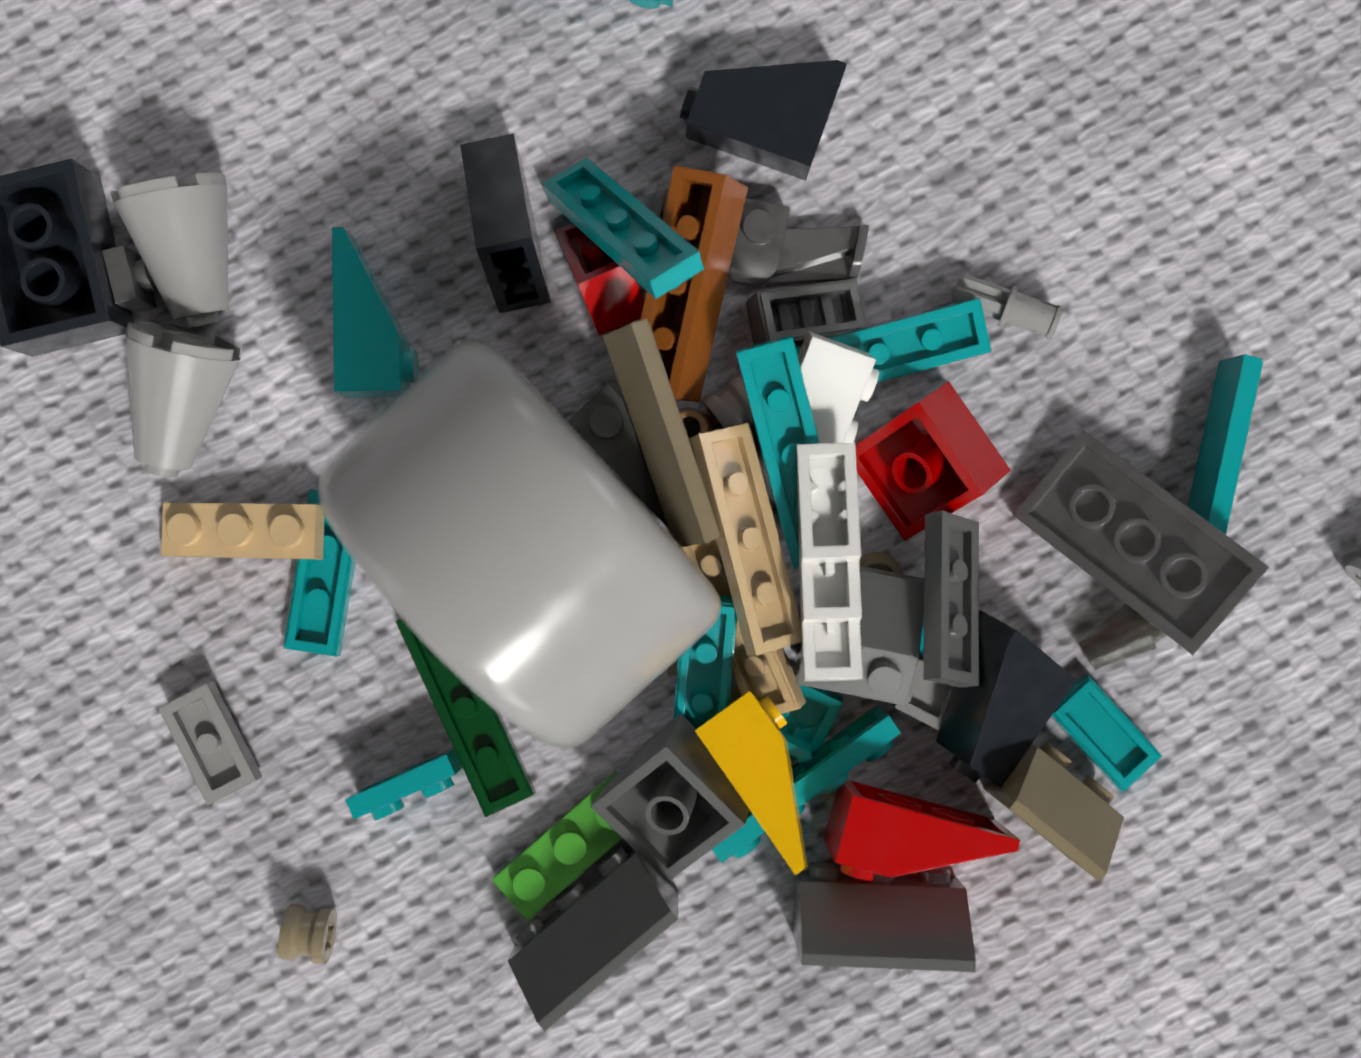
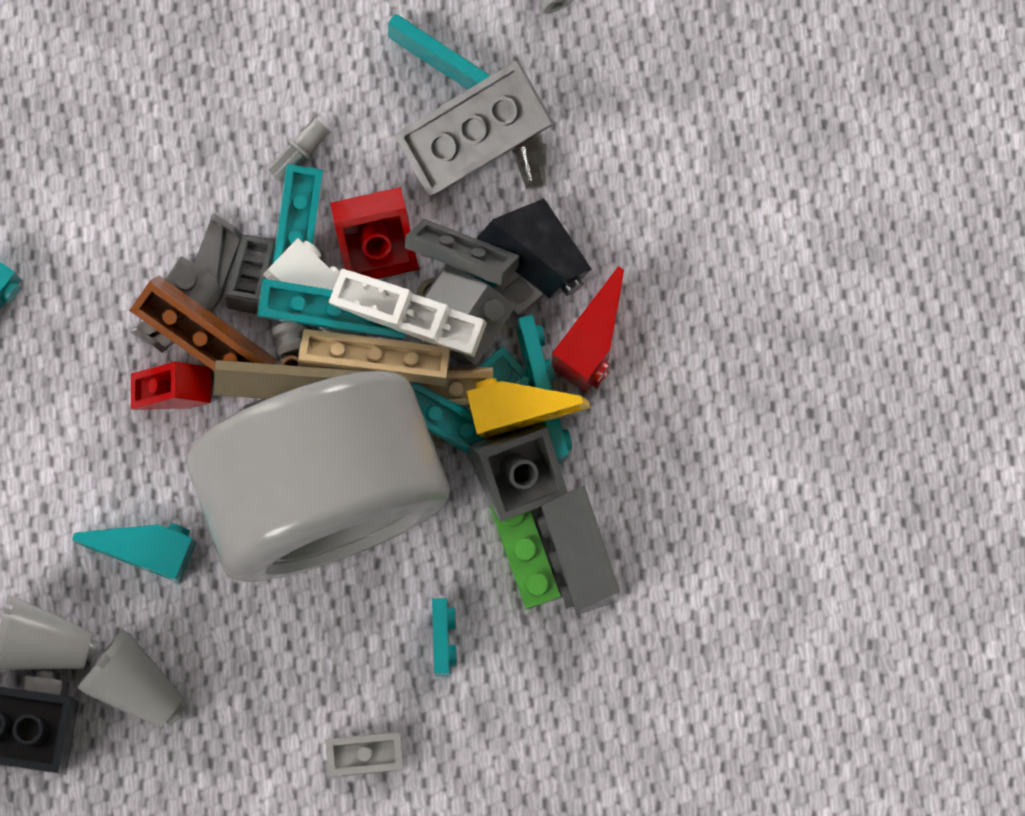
camera: 70 degrees left, 10 degrees down
(243, 530) = (237, 679): tan plate -> none
(307, 934) = (512, 738): dark tan wheel -> none
(321, 596) = (286, 640): teal tile -> none
(473, 730) = (409, 583): dark green tile -> none
(504, 223) = (115, 433): black slope -> none
(623, 228) = (150, 358): teal plate -> none
(765, 112) = (117, 247): black slope -> none
(882, 922) = (640, 372): dark grey slope -> none
(1062, 809) = (618, 240): dark tan slope -> none
(1105, 734) = (588, 196): teal tile -> none

